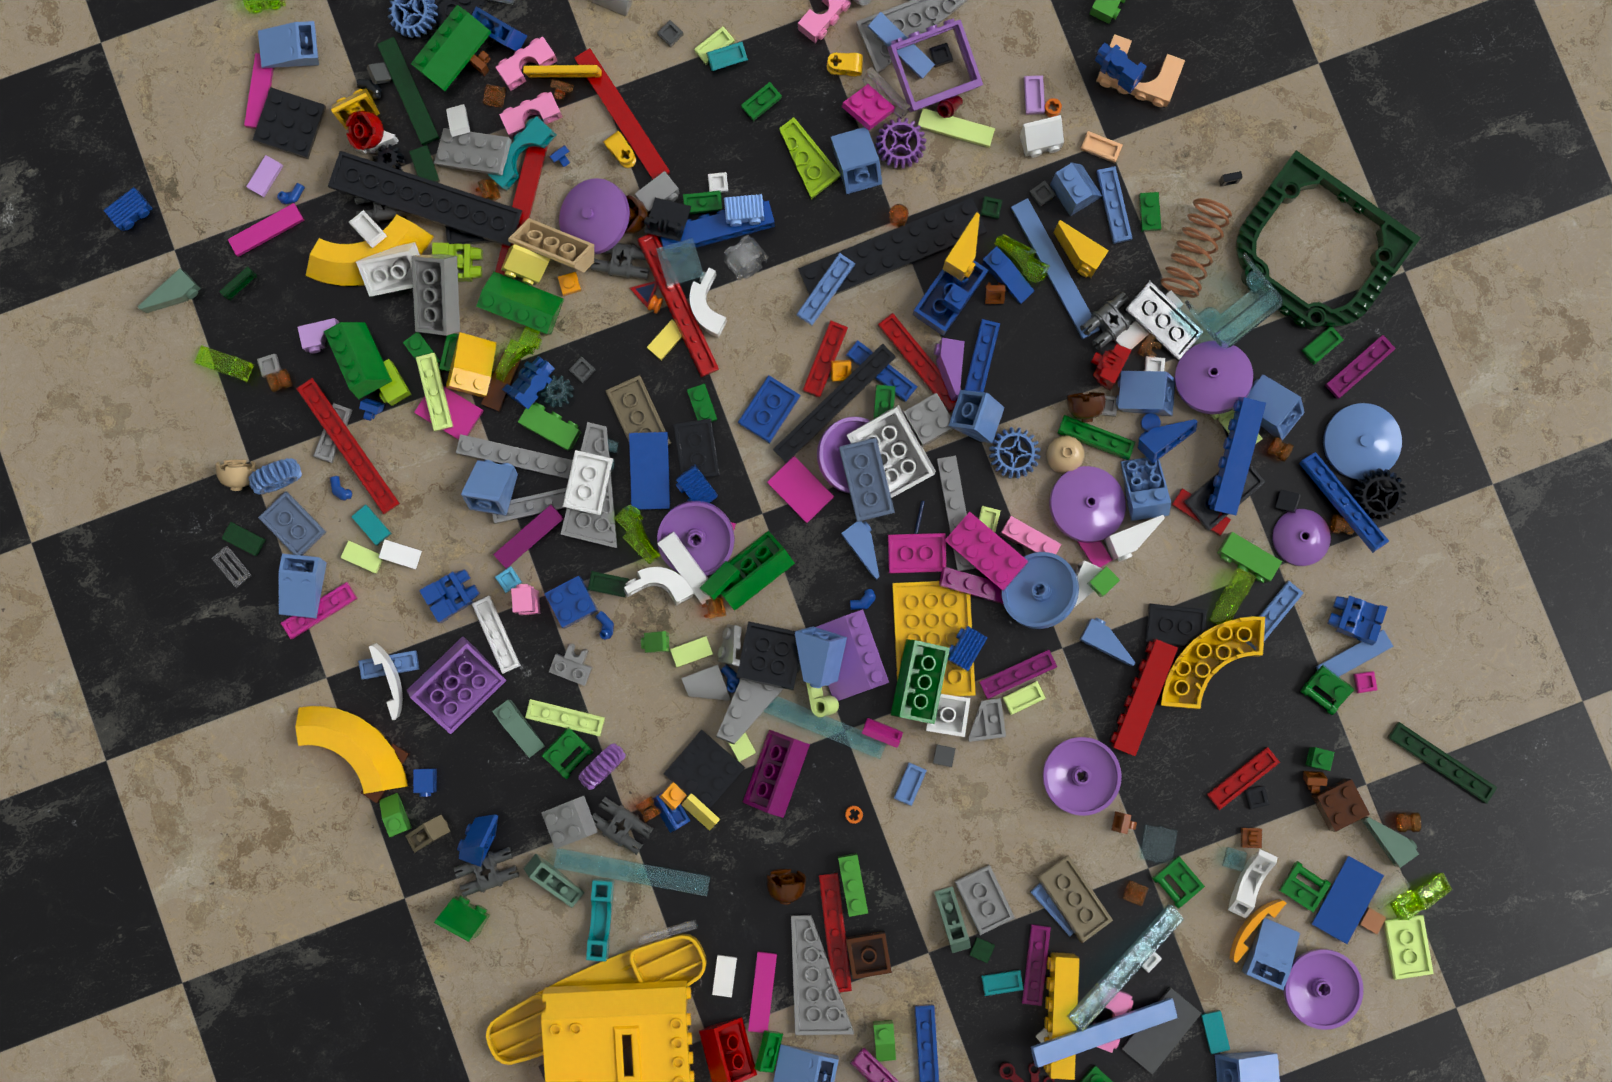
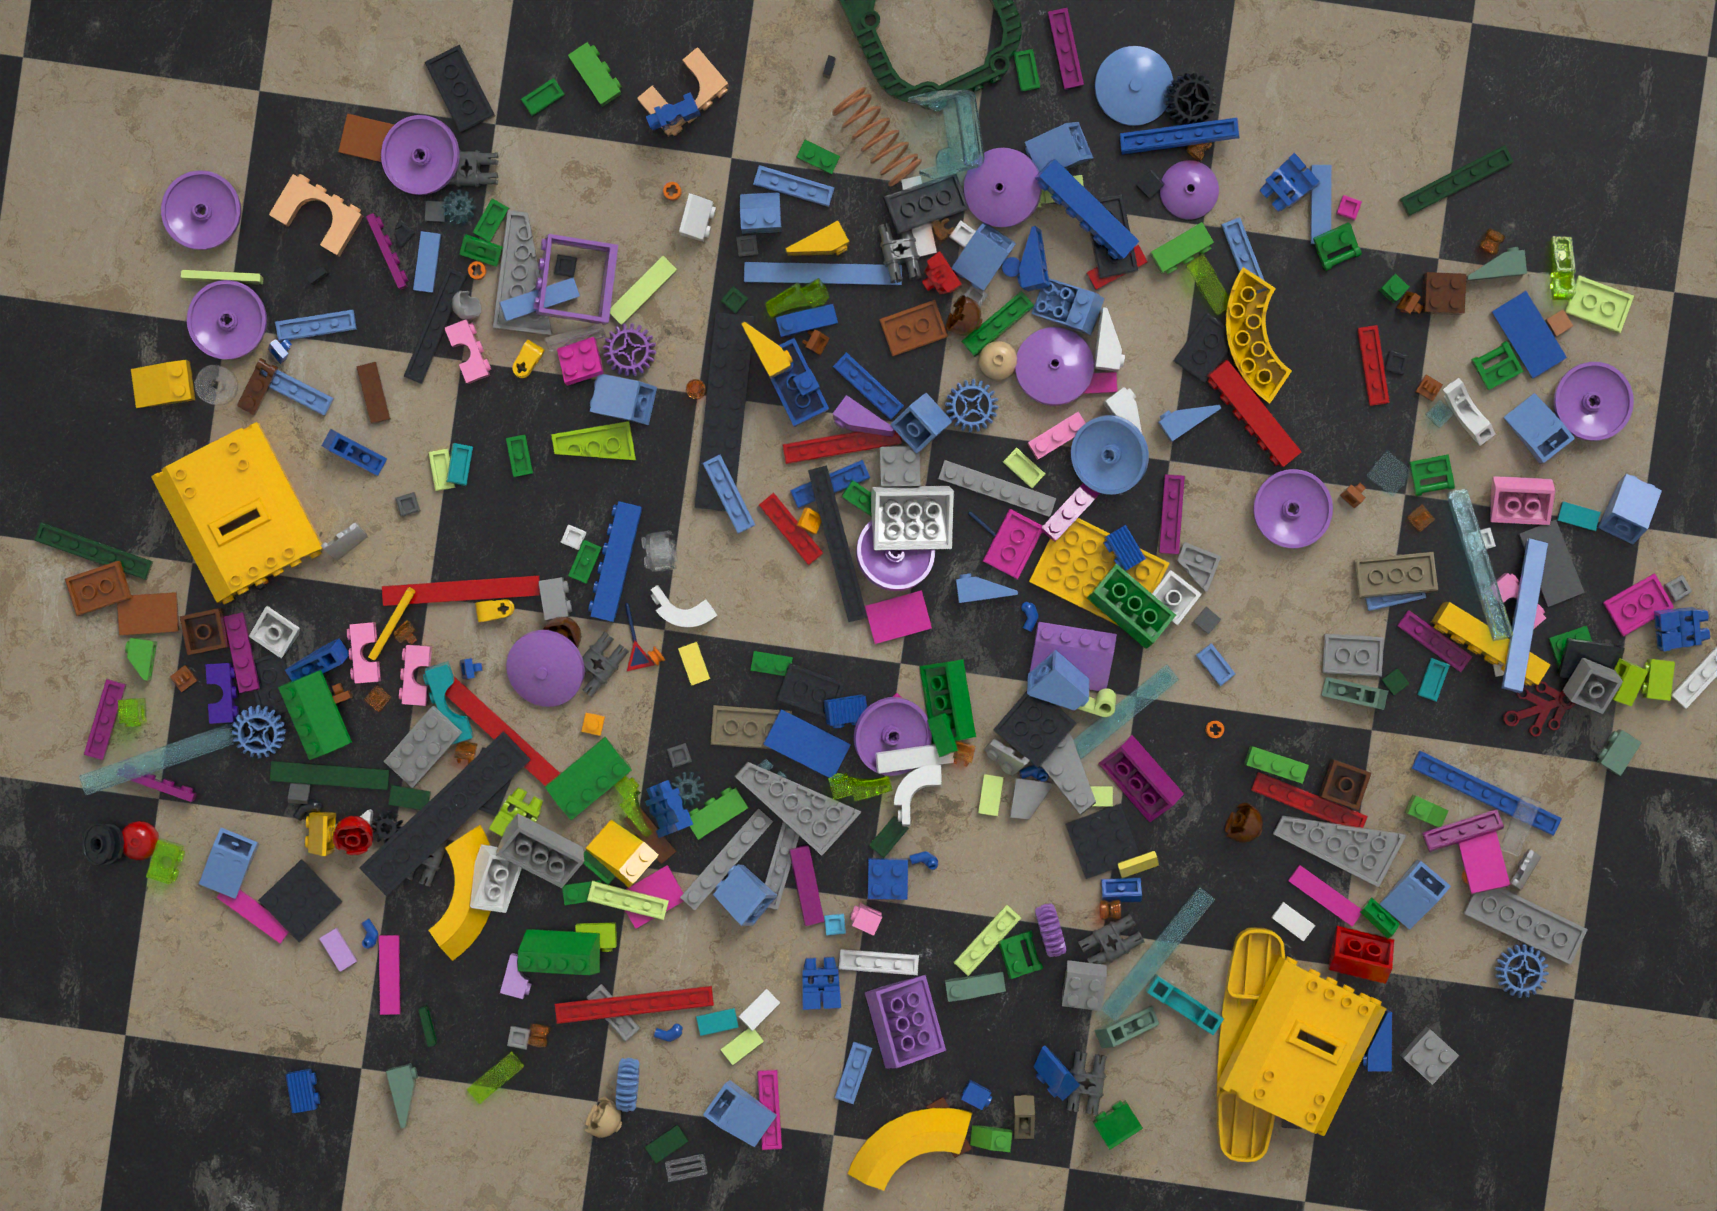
camera: 60 degrees left, 5 degrees up
(292, 524) = (677, 1093): sand blue tile -> none
(367, 229) = (444, 881): white tile -> none
(371, 408) = (610, 965): blue tile -> none
(380, 656) = (845, 1075): white slope -> none
(458, 120) = (385, 744): white tile -> none
(524, 264) = (556, 755): light yellow slope -> none
(554, 244) = (554, 719): tan slope -> none
(571, 666) = (945, 909): light grey plate -> none
(588, 482) = (789, 805): white tile -> none
(655, 642) = (965, 822): bright green slope -> none
(667, 219) = (586, 603): black hinge -> none
(667, 932) = (1227, 950): clear tile -> none
(672, 796) = (1110, 881): light orange plate -> none
(679, 309) = (668, 635): red tile -> none
(680, 262) = (632, 613): clear light blue plate -> none
(744, 209) = (617, 528): light blue brick -> none
(769, 409) = (809, 605): blue tile -> none
(866, 479) = (925, 554): sand blue tile -> none
(882, 732) = (1157, 664): dark pink tile -> none
(949, 106) = (621, 287): dark red cone -> none
(986, 551) = (1047, 482): dark pink plate -> none
(1023, 698) = (1195, 520): yellowish green tile -> none
(1034, 95) = (651, 201): lavender tile -> none
(1052, 369) = (913, 328): none -> dark orange tile
(1101, 147) = (733, 167): light nougat tile -> none
(1103, 581) = (1134, 395): bright green panel -> none
(1201, 973) = (1522, 500): none -> bright pink slope
(1238, 947) = (1499, 406): light orange slope -> none
(1280, 449) = (1096, 166): clear orange wheel -> none

